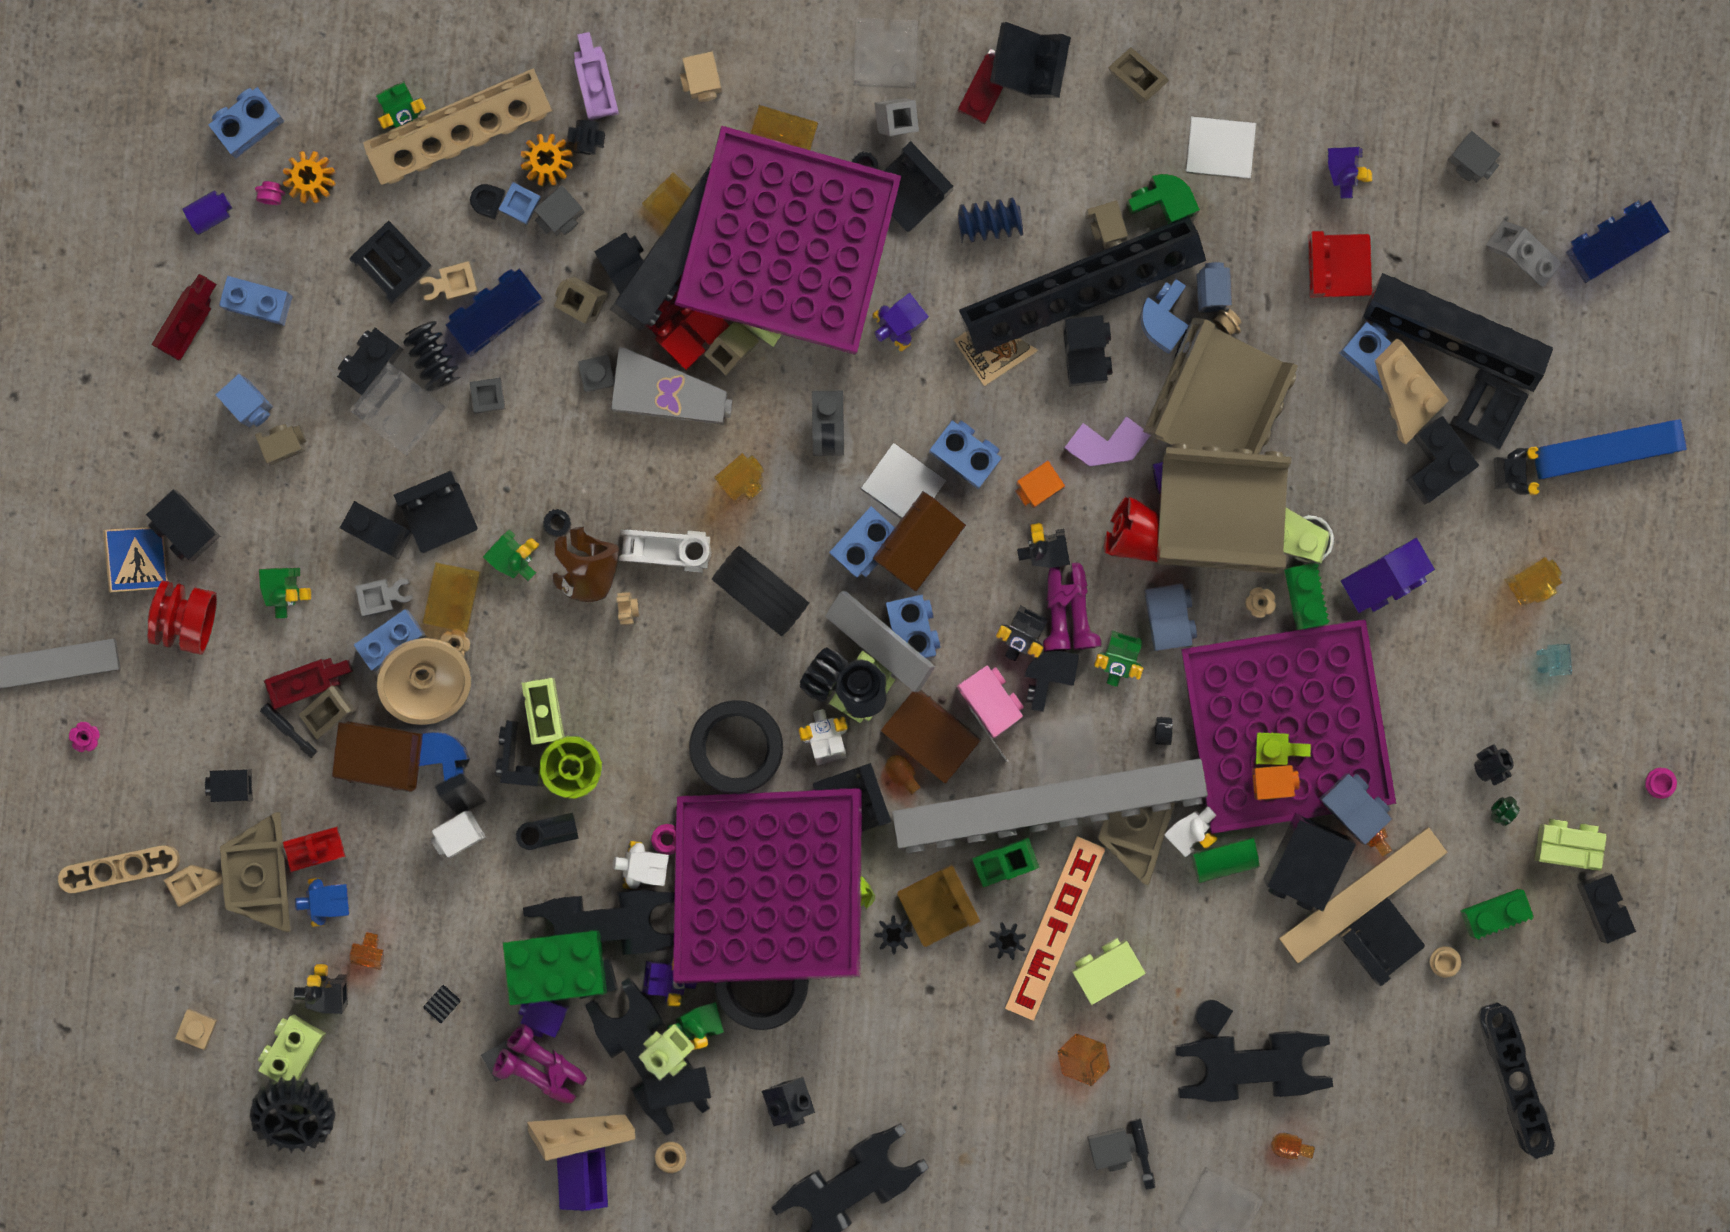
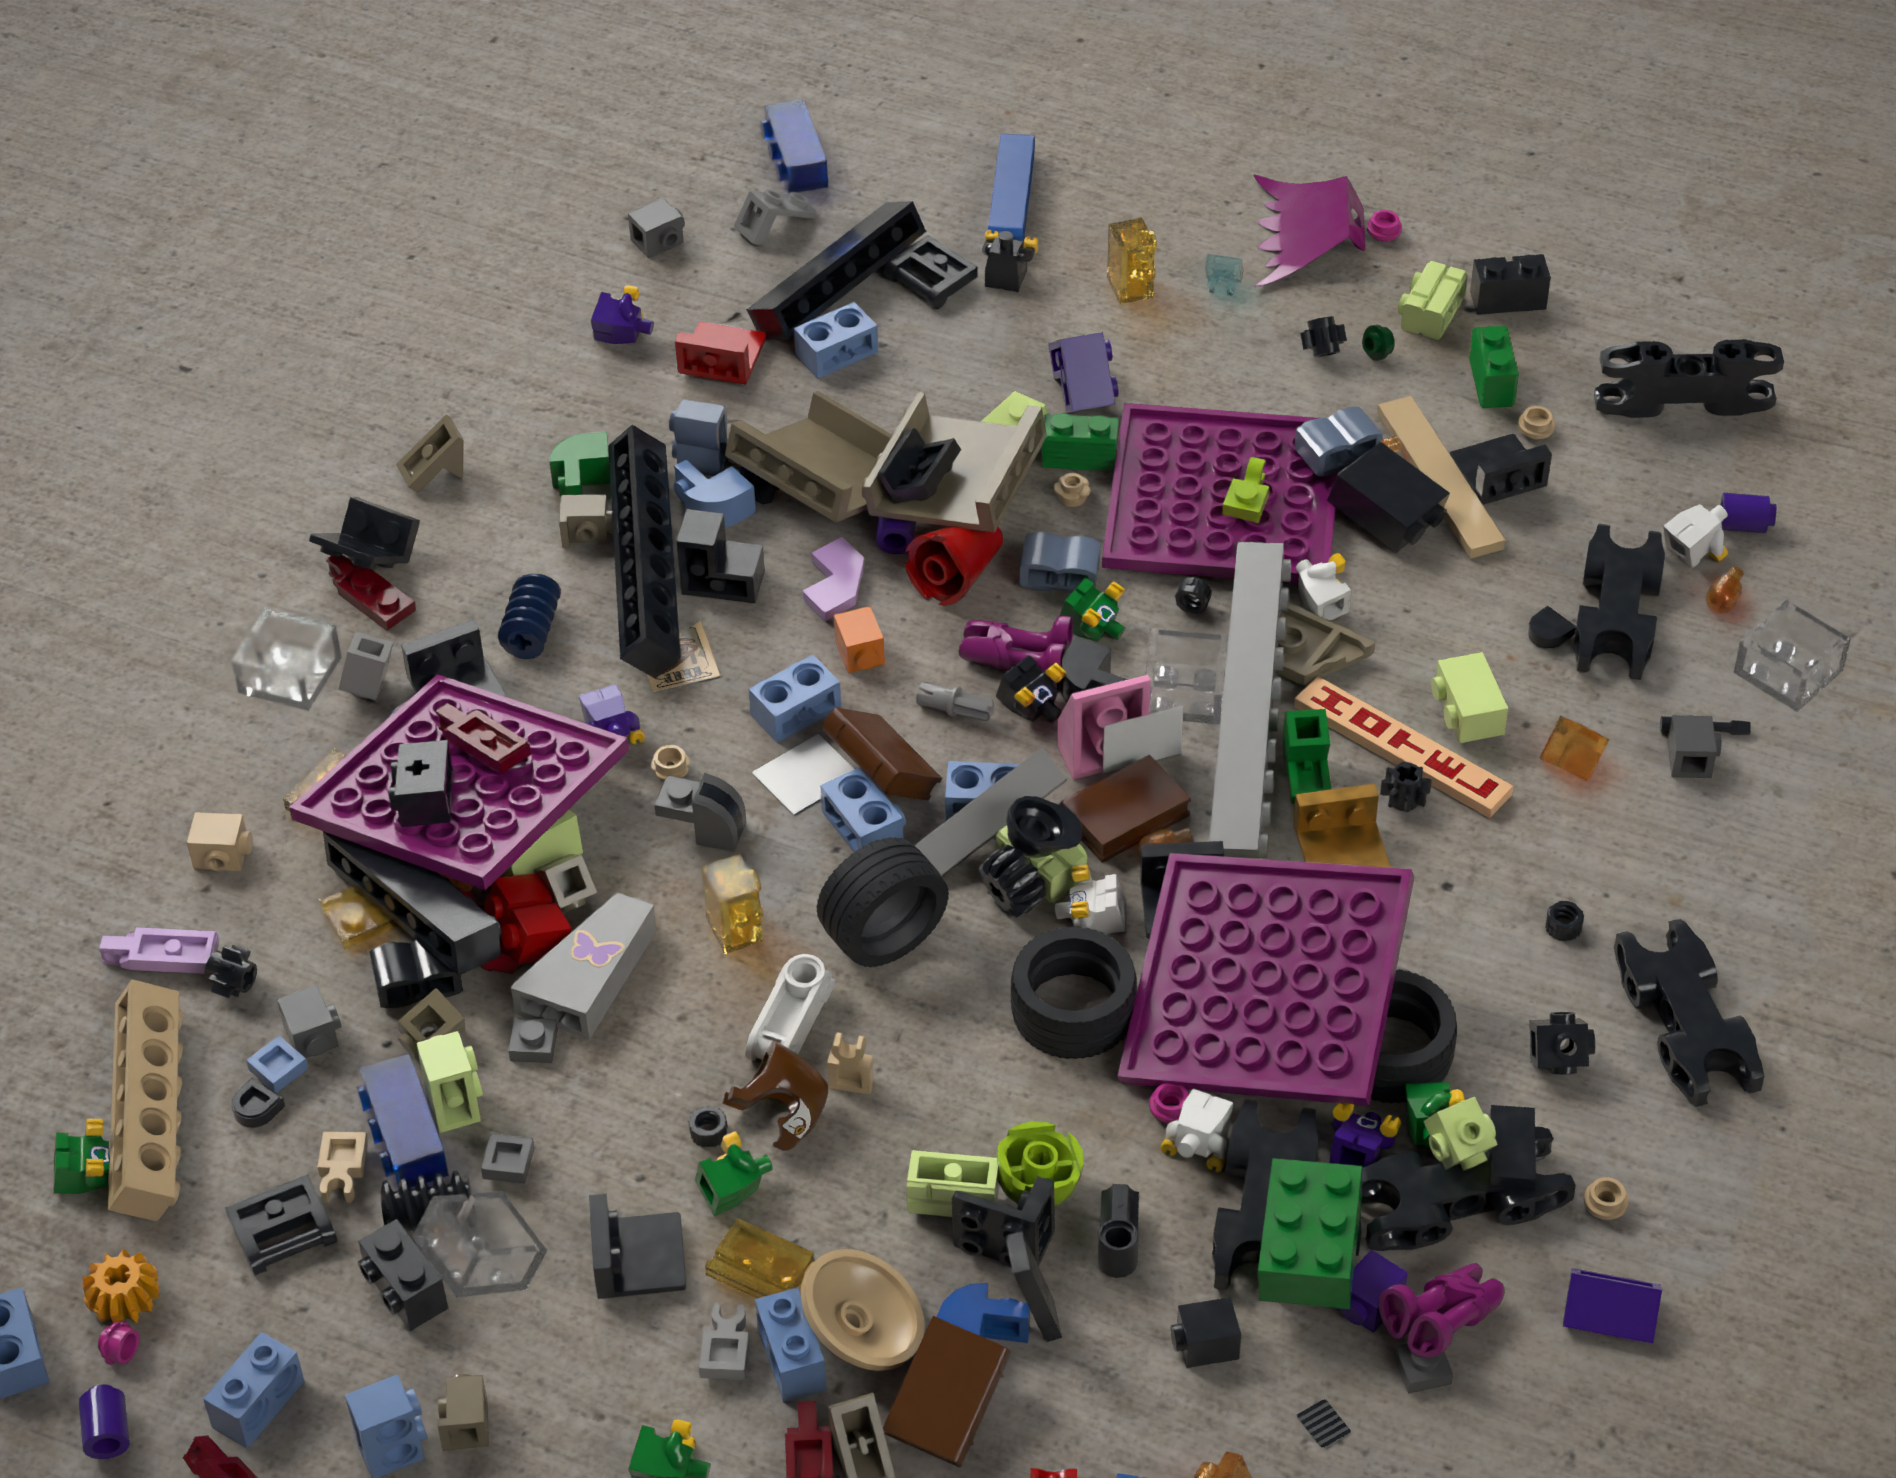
camera: 70 degrees left, 40 degrees down
(376, 530) = (635, 1313): black brick -> none
(457, 834) = (1089, 1316): white piece -> none
(479, 912) = (1207, 1332): none -> black brick
(527, 334) = (450, 1080): none -> yellowish green brick
(546, 171) = (237, 1020): light orange gear -> none
(578, 1135) = (1552, 1286): tan wing -> none
(744, 235) = (422, 783): none -> black brick
(819, 246) = (482, 738): none -> dark red hinge
(883, 387) = (670, 761): none -> tan plate
(919, 1092) = (1563, 931): none -> black axle
(999, 577) = (955, 701): none -> light grey axle
(1045, 550) = (940, 642): black piece -> none
(1204, 484) = (917, 467): none -> black bracket
(1221, 147) = (545, 422): white sticker -> none
(1225, 860) = (1364, 572): green brick -> none
(1275, 782) = (1285, 500): orange brick -> none
(1343, 1115) = (1697, 533): none -> white piece
(1381, 1150) = (1747, 512): none -> dark purple brick
(1409, 389) = (877, 307): tan wing -> none
(1448, 459) = (970, 307): black brick -> none
(1645, 725) = (1310, 222): none -> magenta piece

